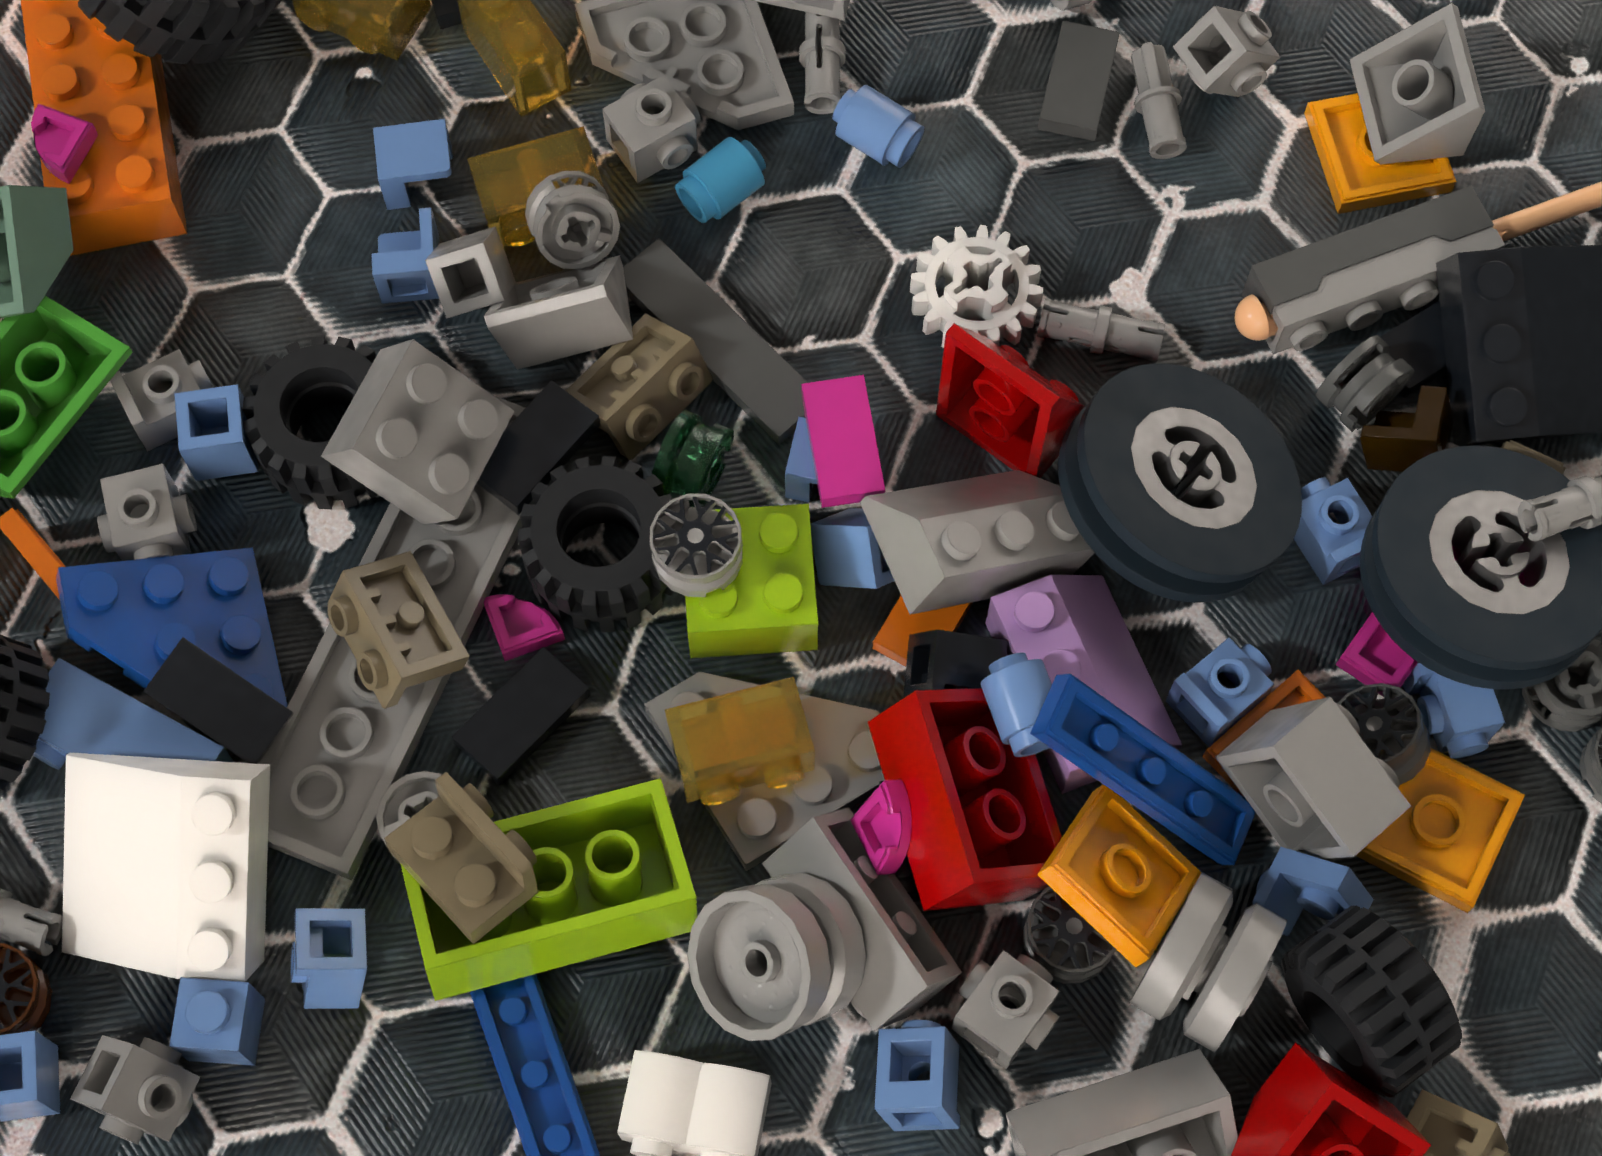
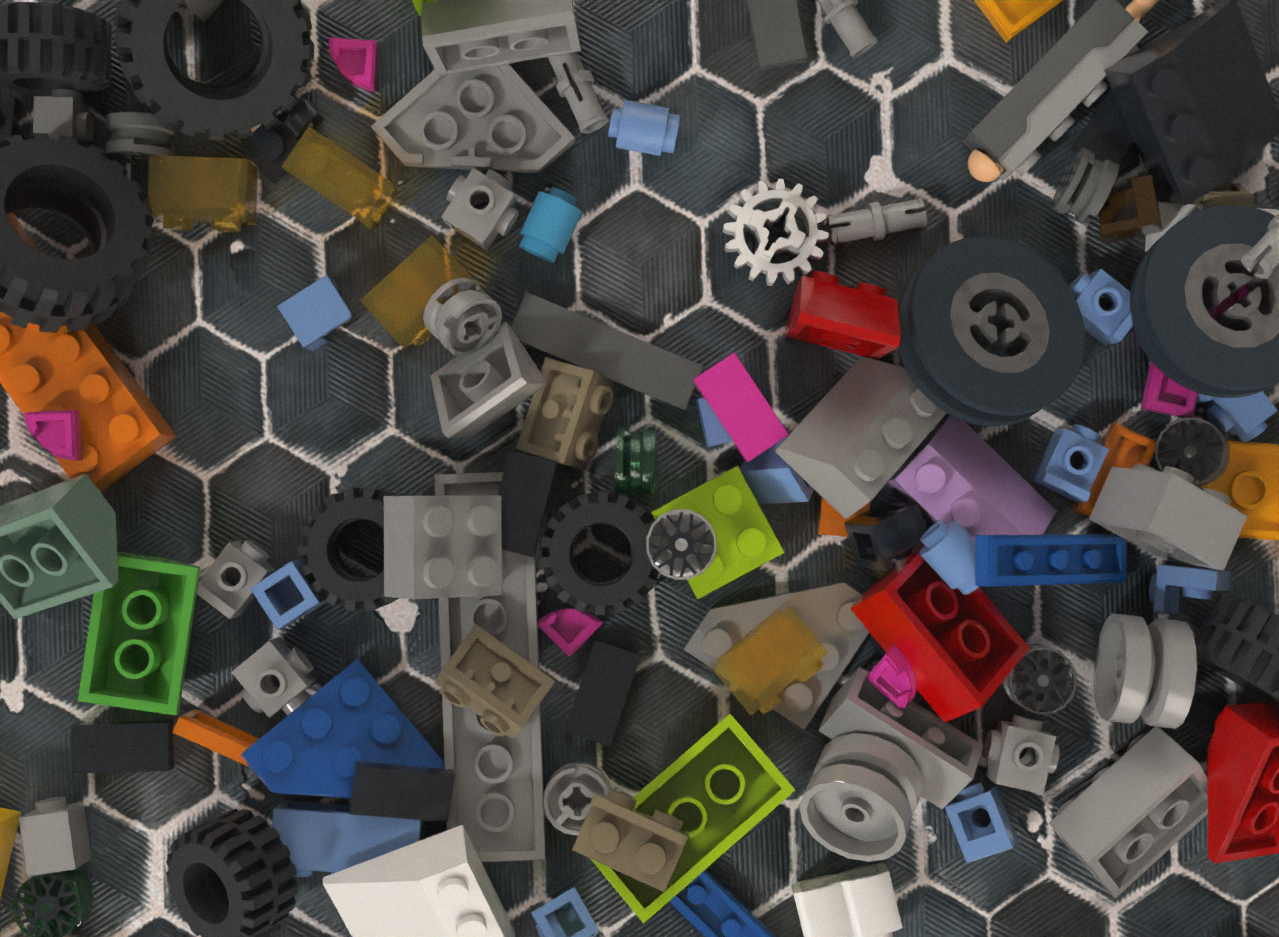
camera: 30 degrees left, 20 degrees up
(401, 264) = (352, 390): medium blue panel -> none
(471, 272) = (408, 388): light grey brick -> none
(1120, 875) = (1060, 634): light orange tile -> none

